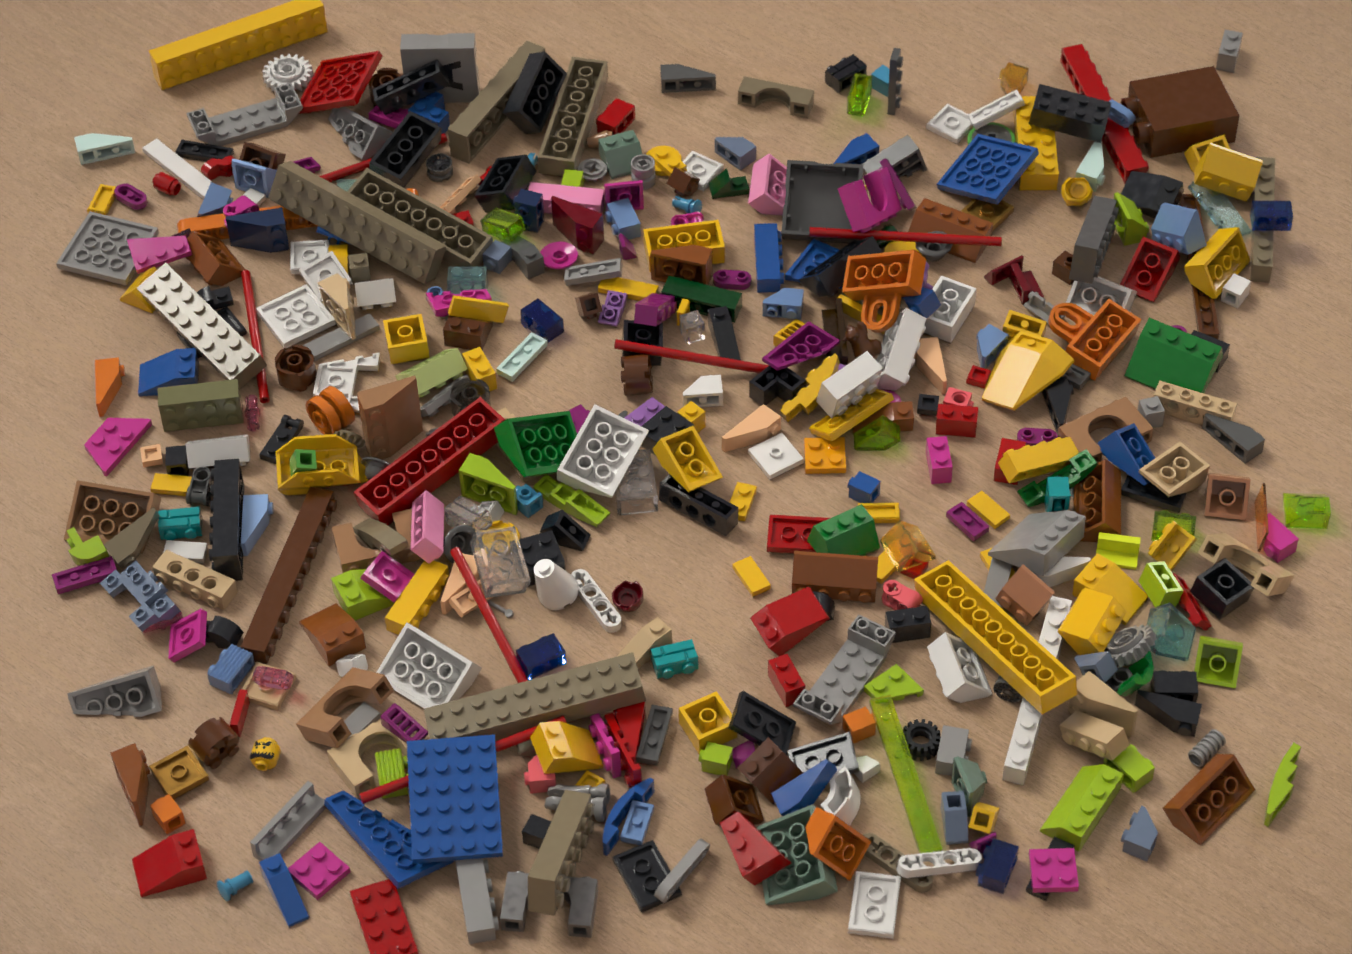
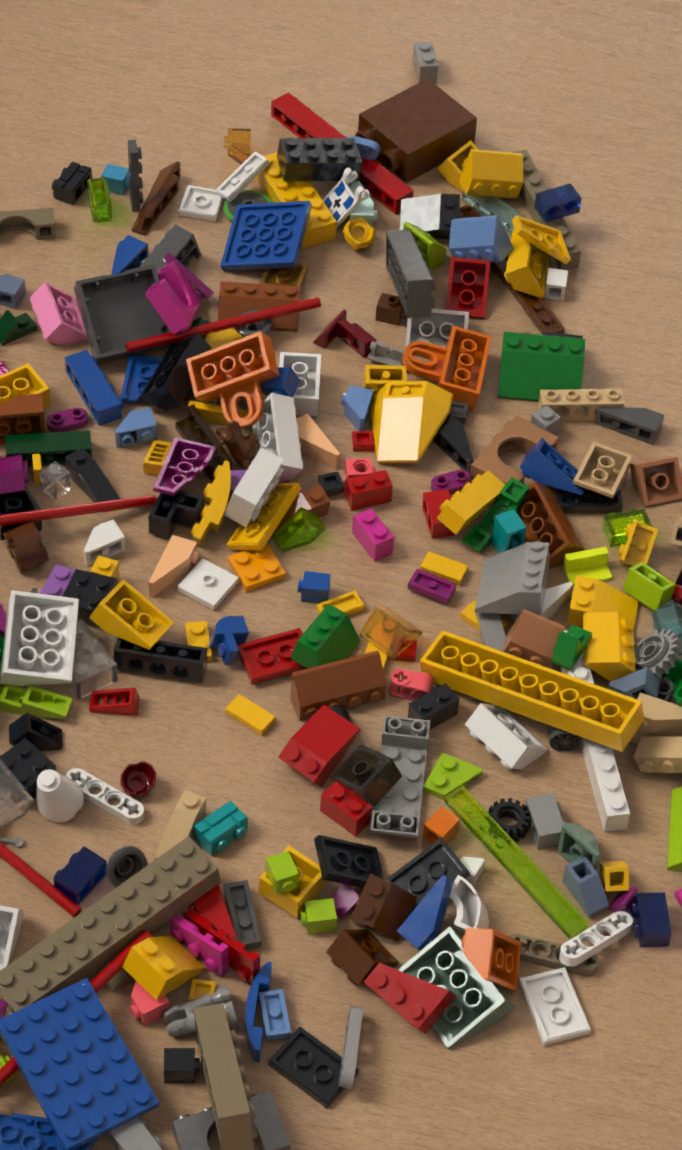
camera: 30 degrees left, 0 degrees up
(577, 656) = (125, 864): none -> dark grey hat
(655, 534) = (122, 708): none -> red slope
(695, 709) = (282, 872): none -> lime brick
(765, 502) = (227, 635): none -> blue brick
(815, 659) = (368, 774): none -> clear smoke brick
(917, 108) = (159, 197): none -> reddish brown wedge
(1050, 612) = (570, 646): none -> green slope
(1076, 155) = (341, 198): none -> white flag
(1236, 242) = (543, 237): none -> yellow wing

